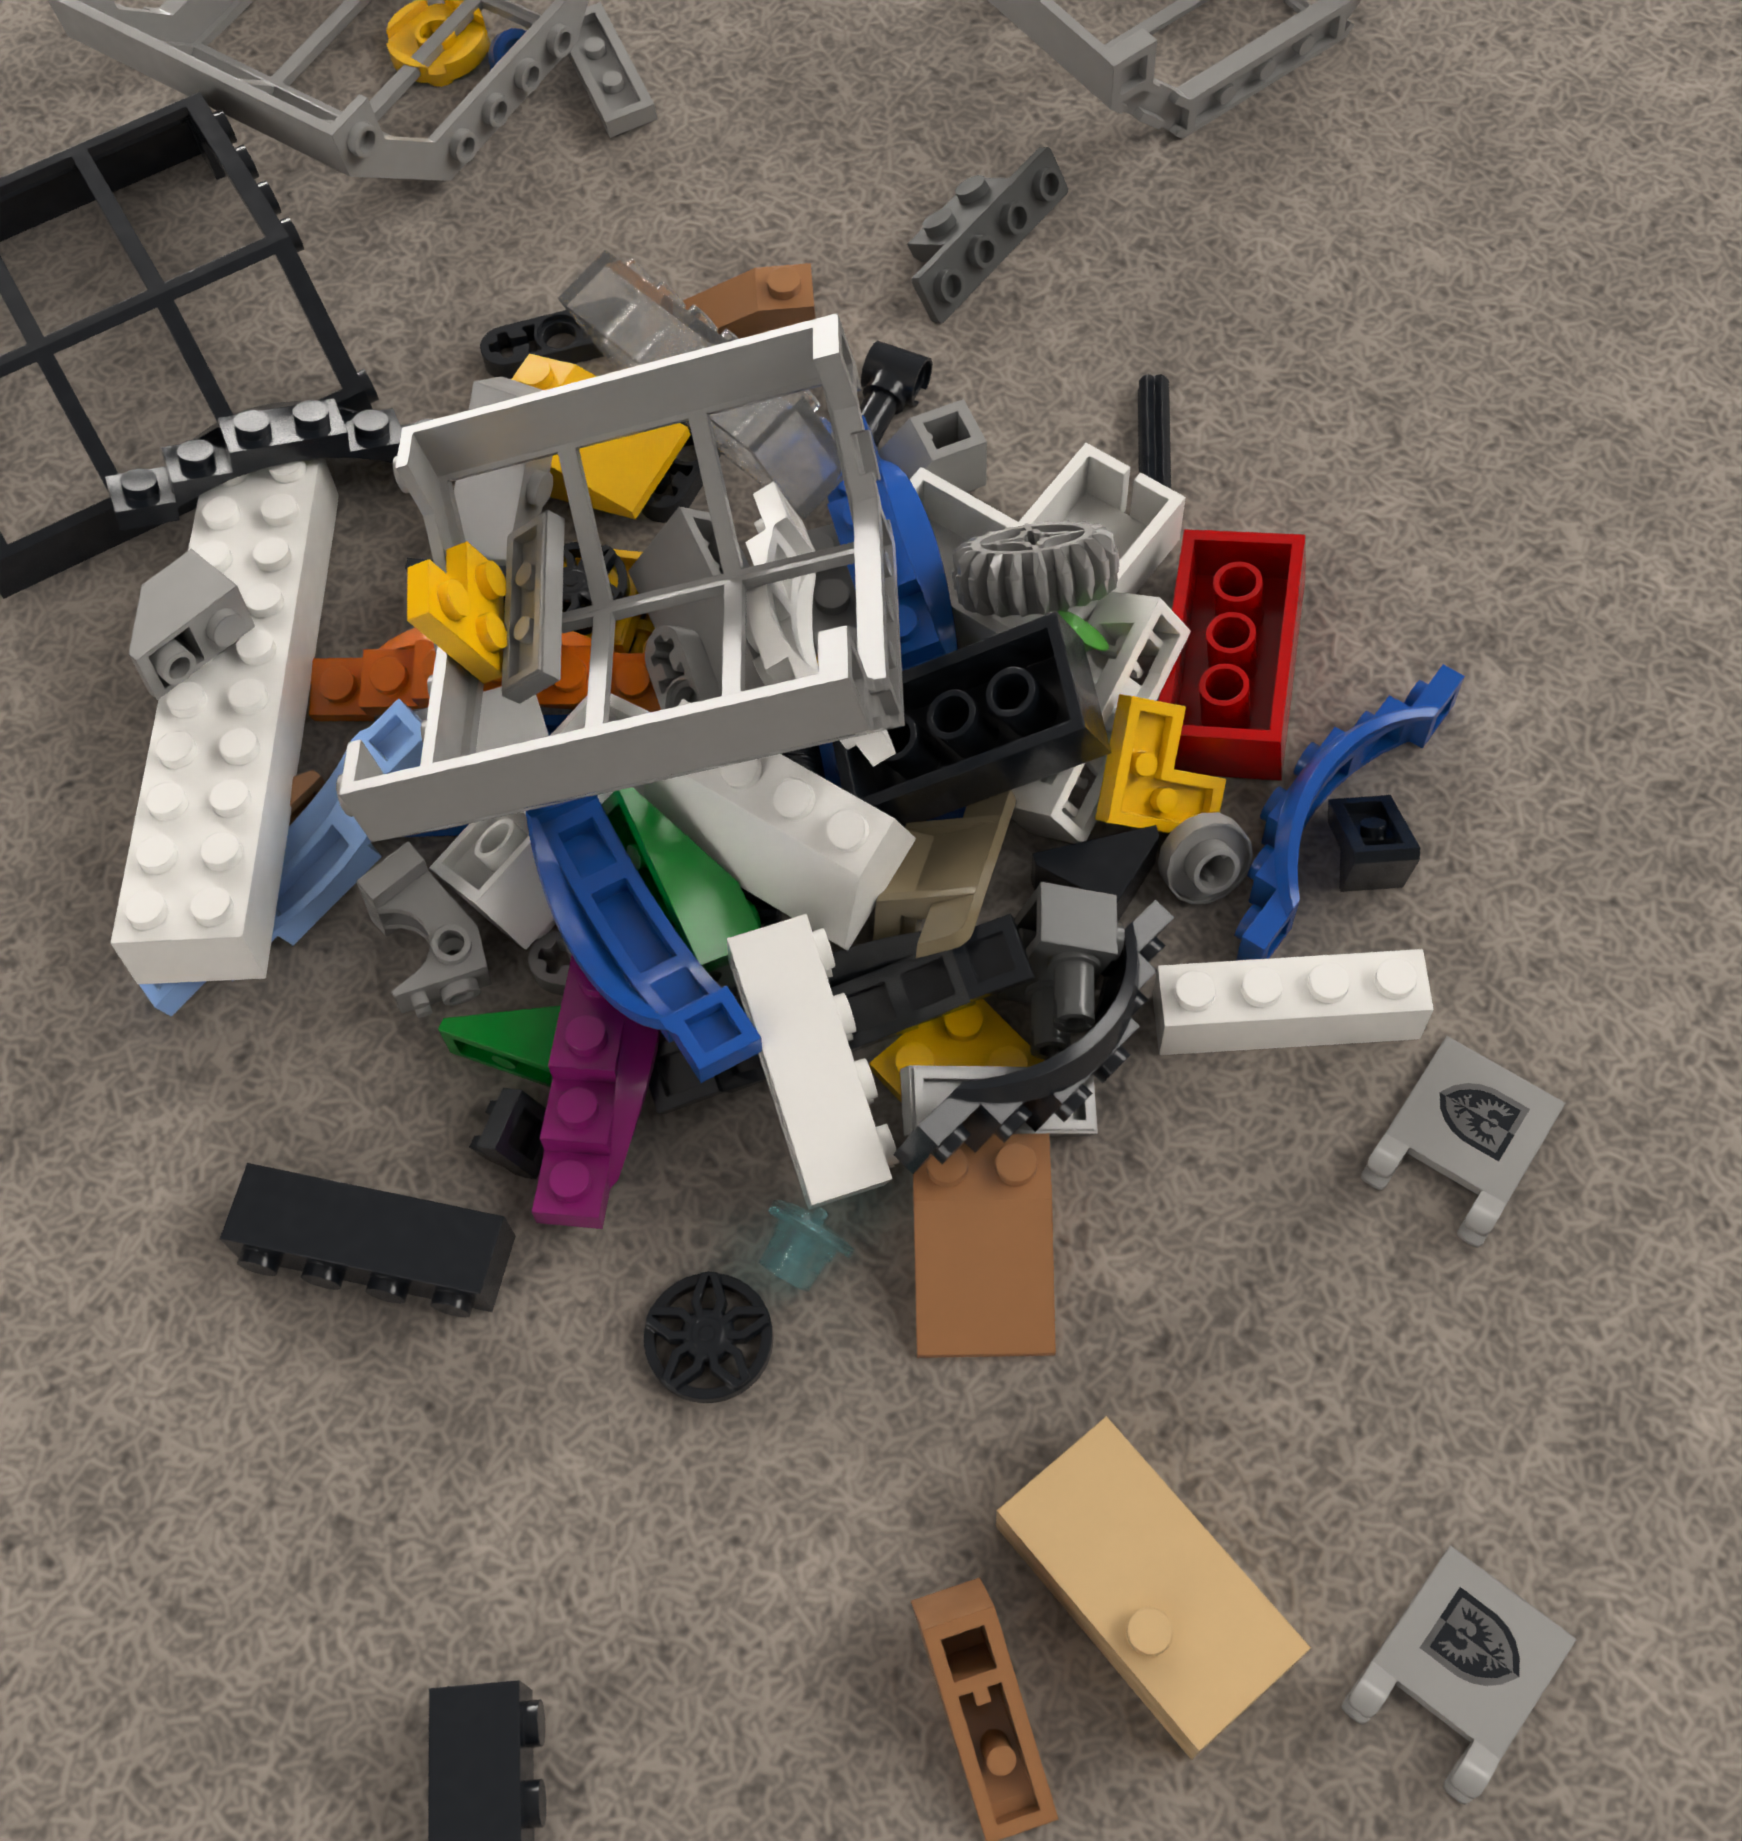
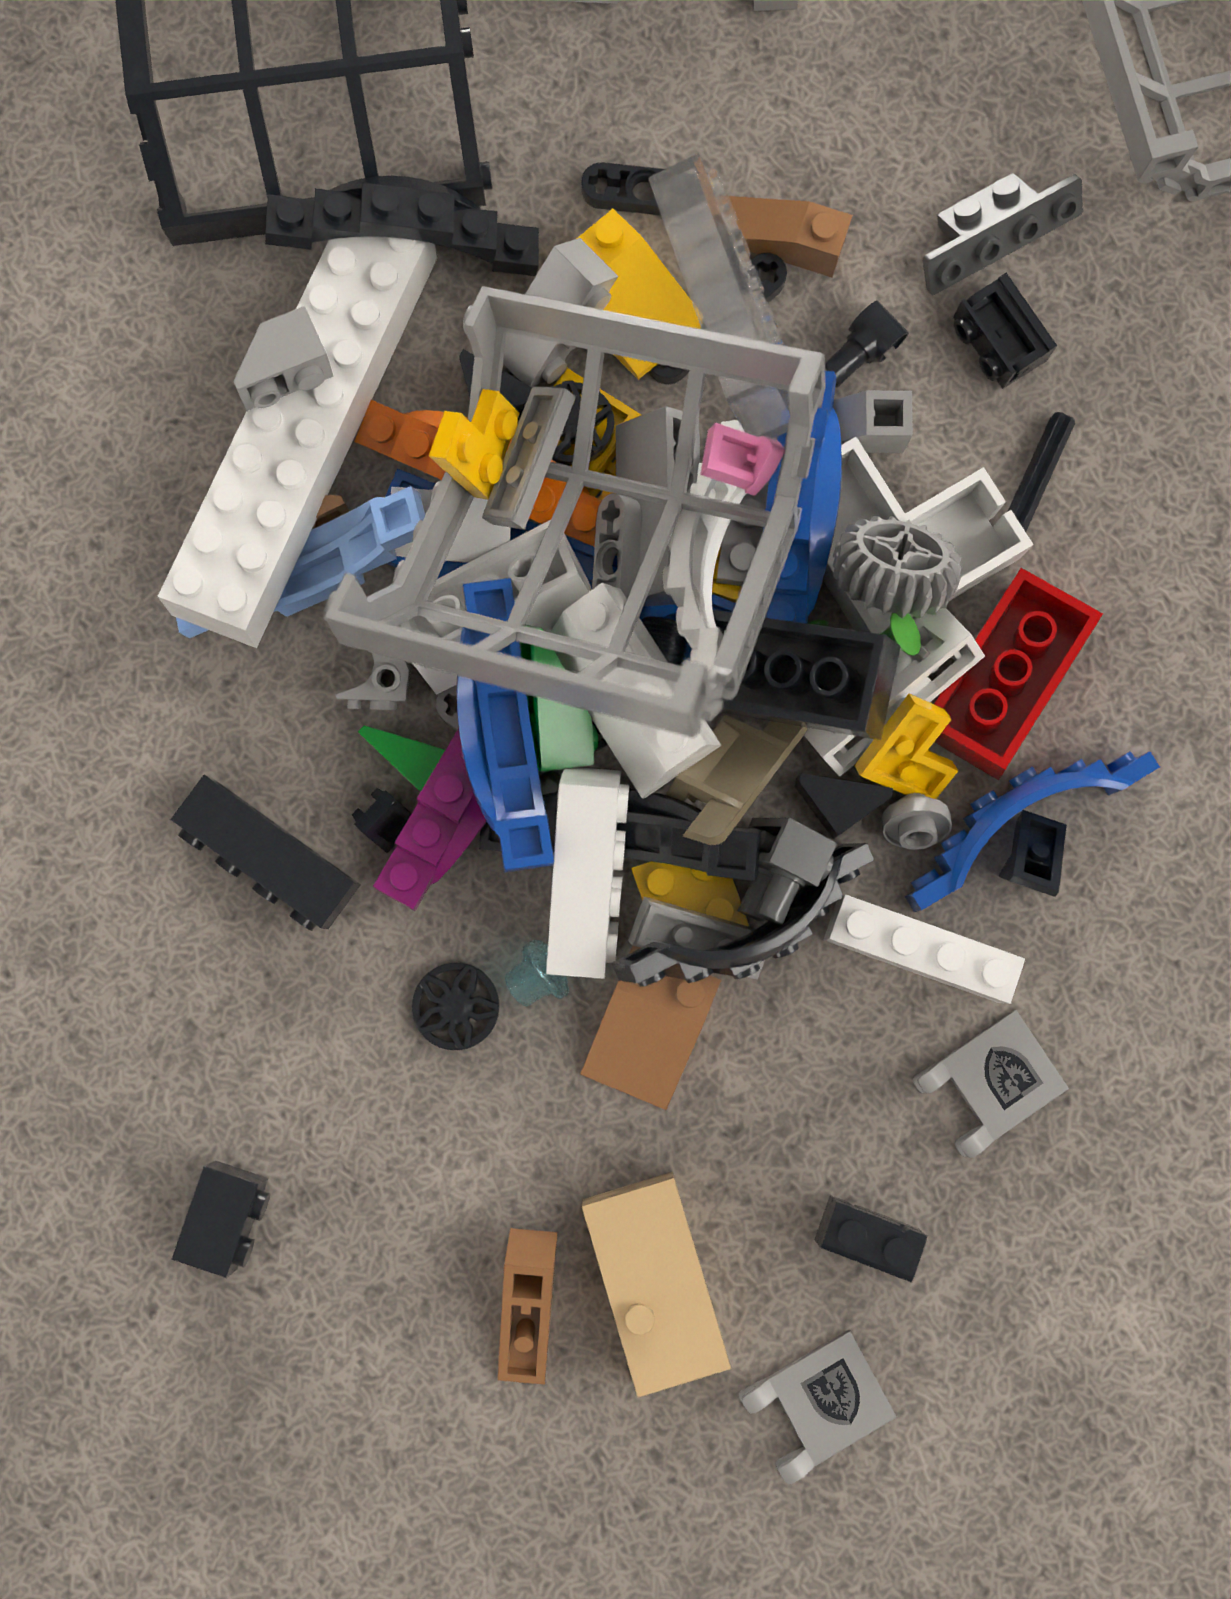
camera: 20 degrees right, 20 degrees up
(792, 492) = (740, 458): none -> bright pink tile
(1040, 321) = (1003, 331): none -> black hinge
(1412, 1395) = (871, 1238): none -> black brick

